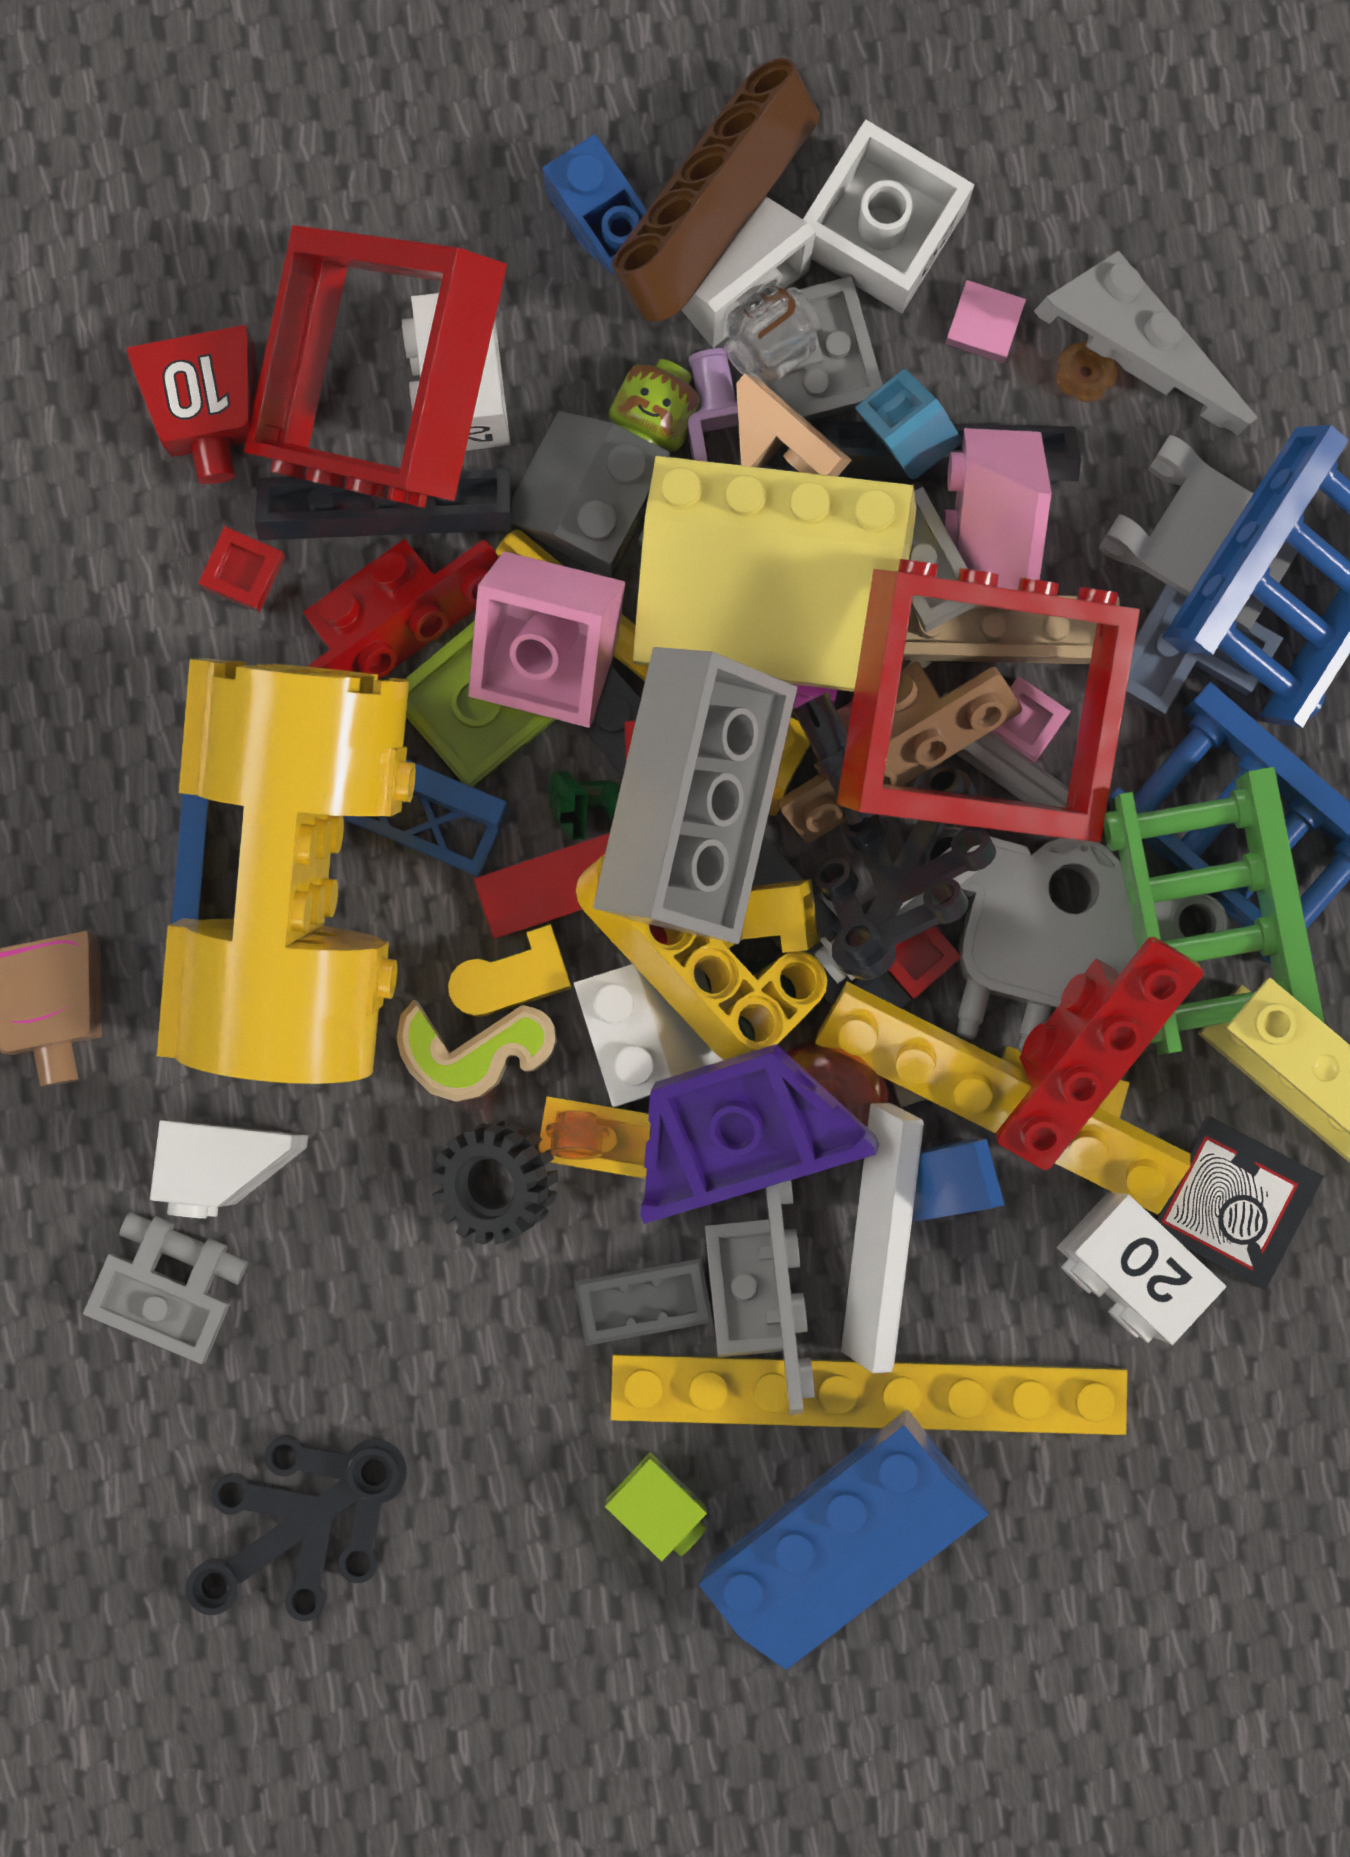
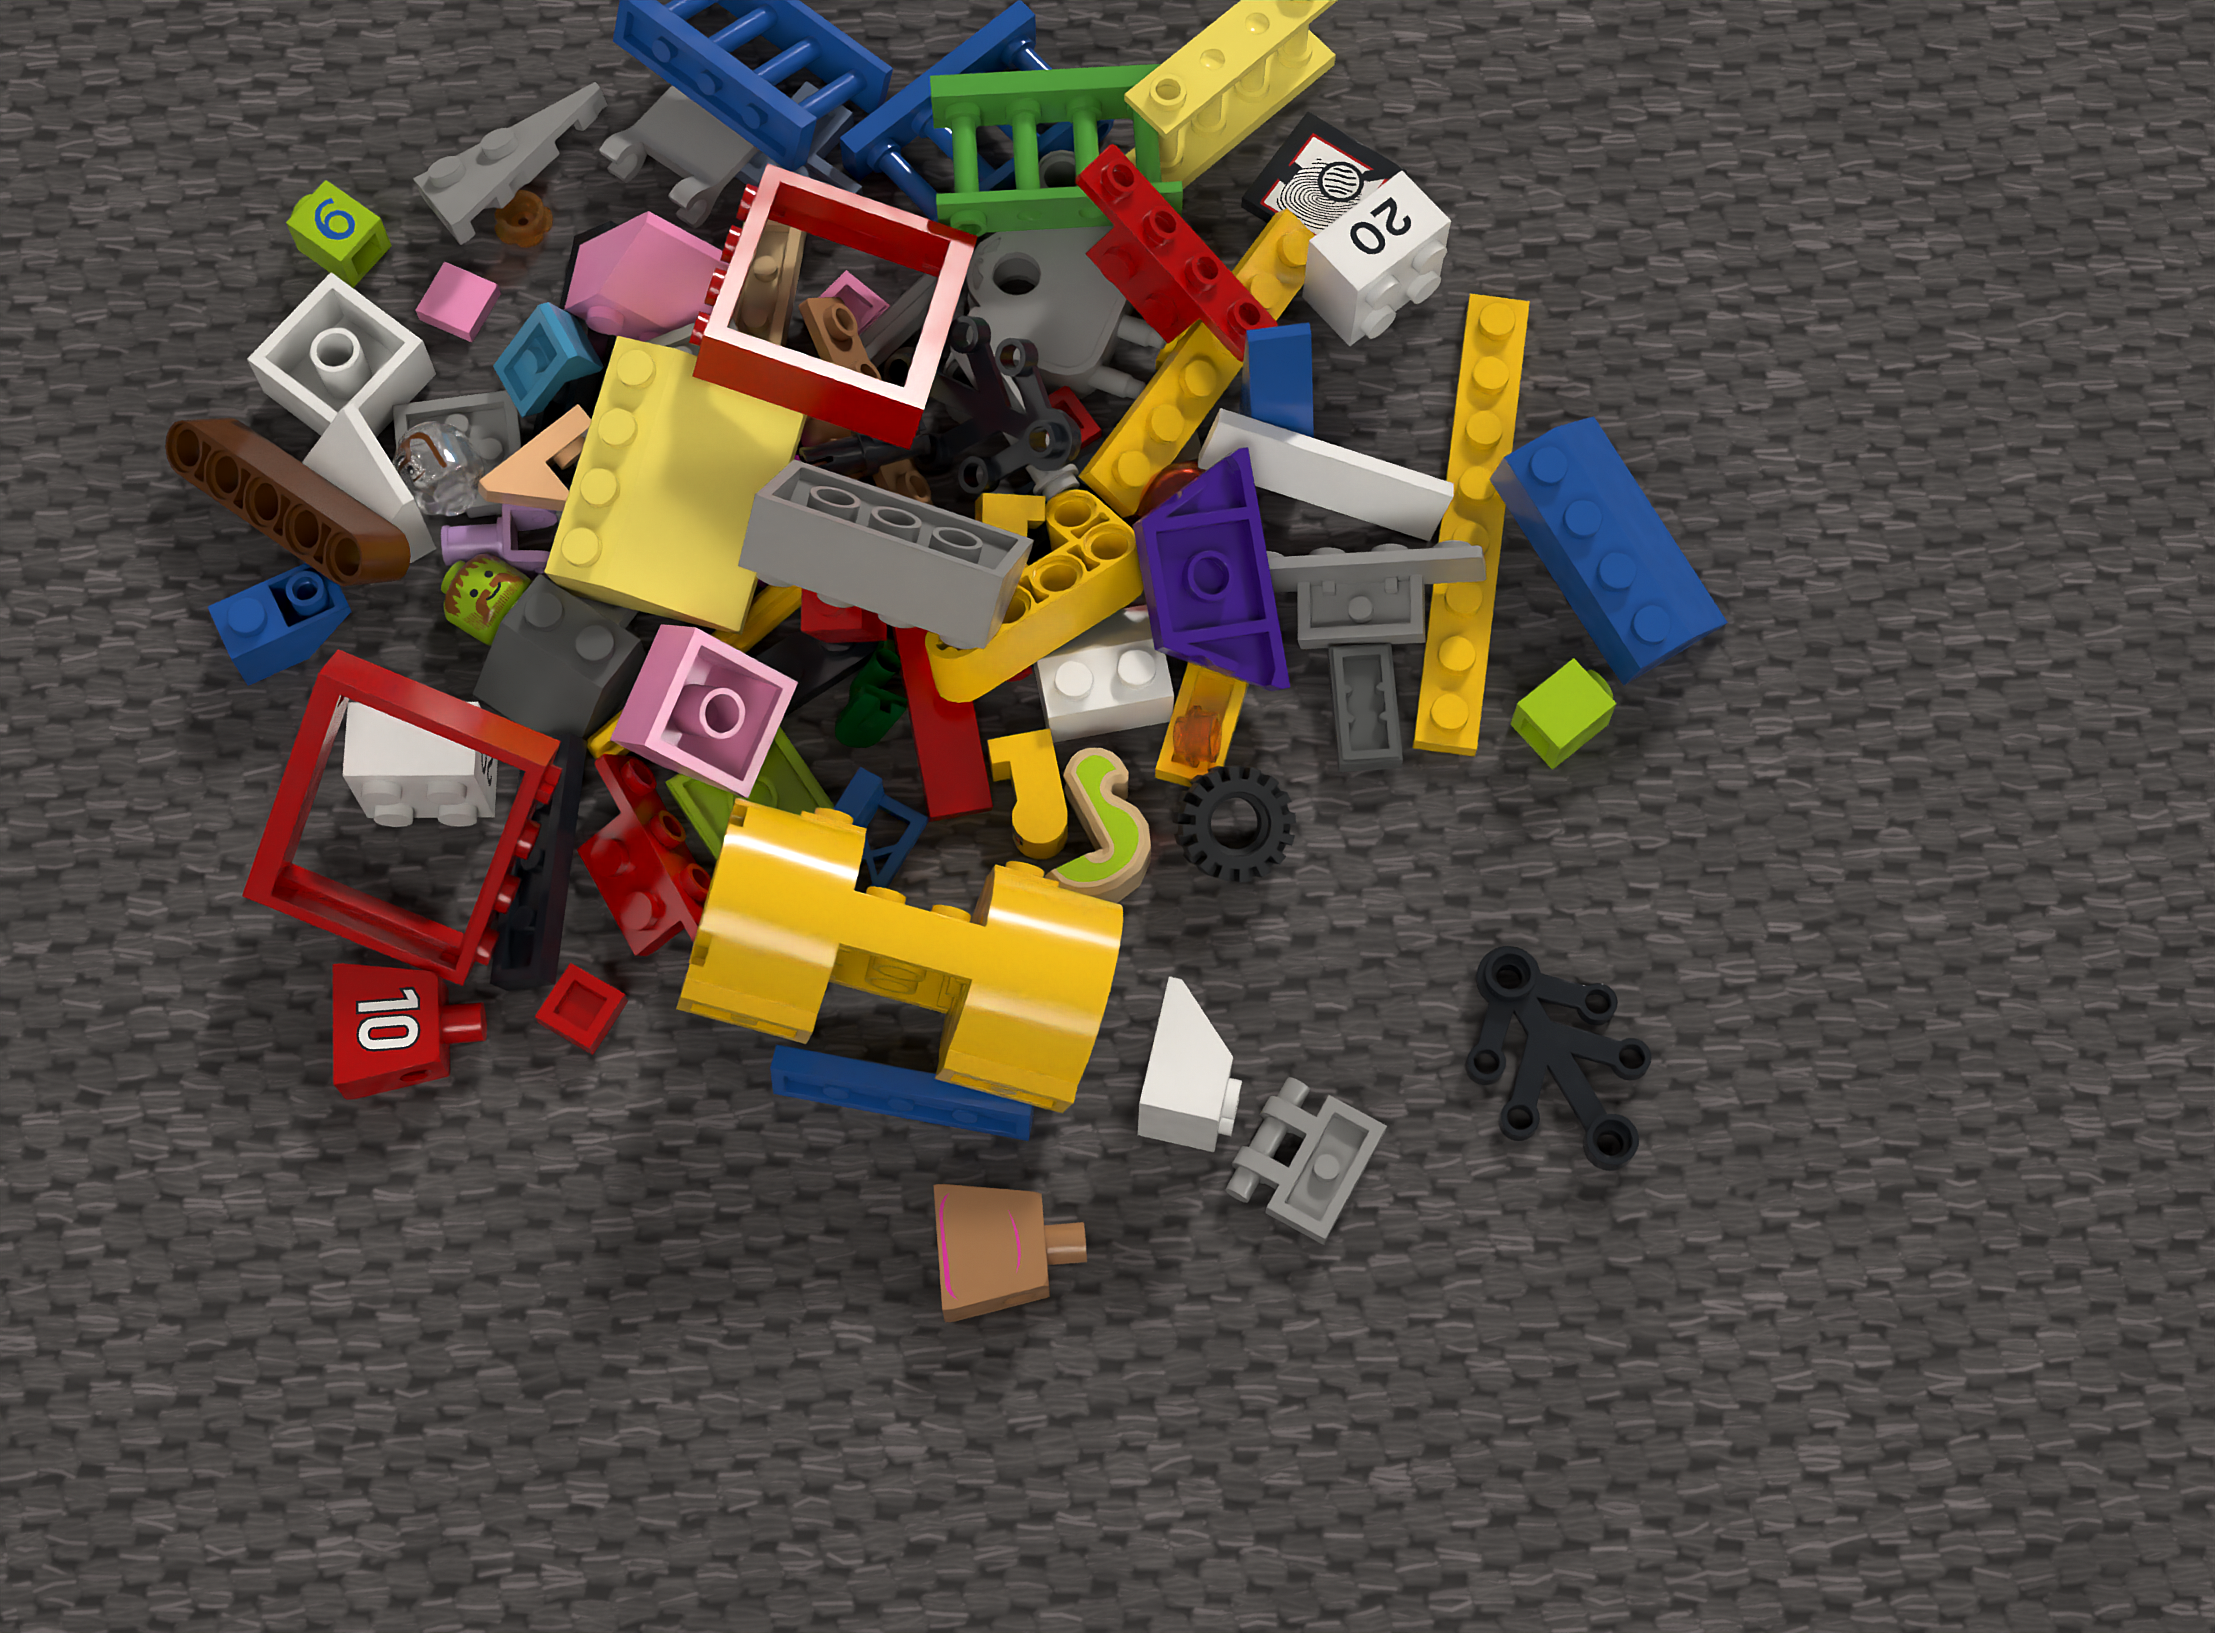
camera: 80 degrees left, 15 degrees down
(1041, 184) = (338, 233): none -> lime brick

